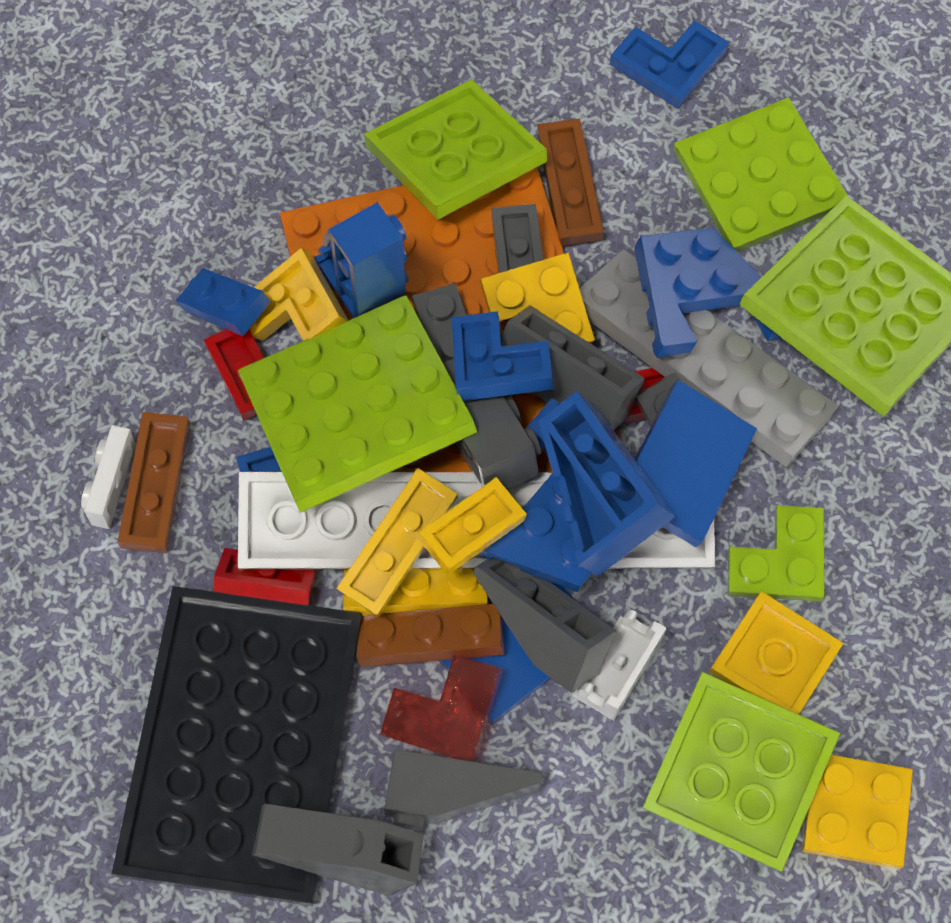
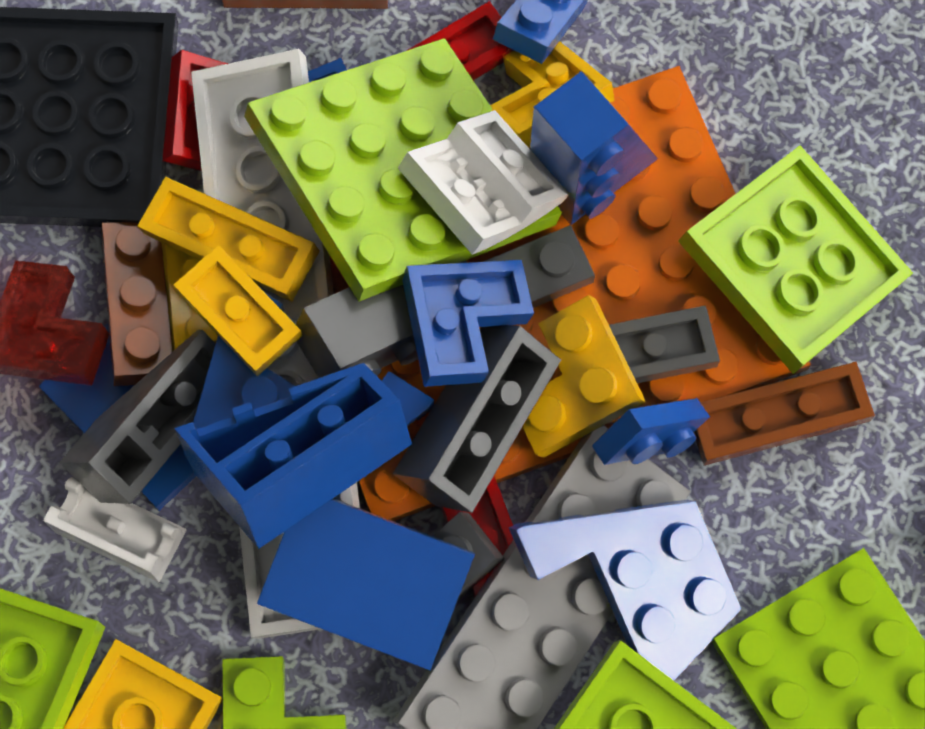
camera: 85 degrees right, 5 degrees up
(384, 335) = (483, 181): none -> white slope
(588, 257) = (651, 432): none -> blue plate

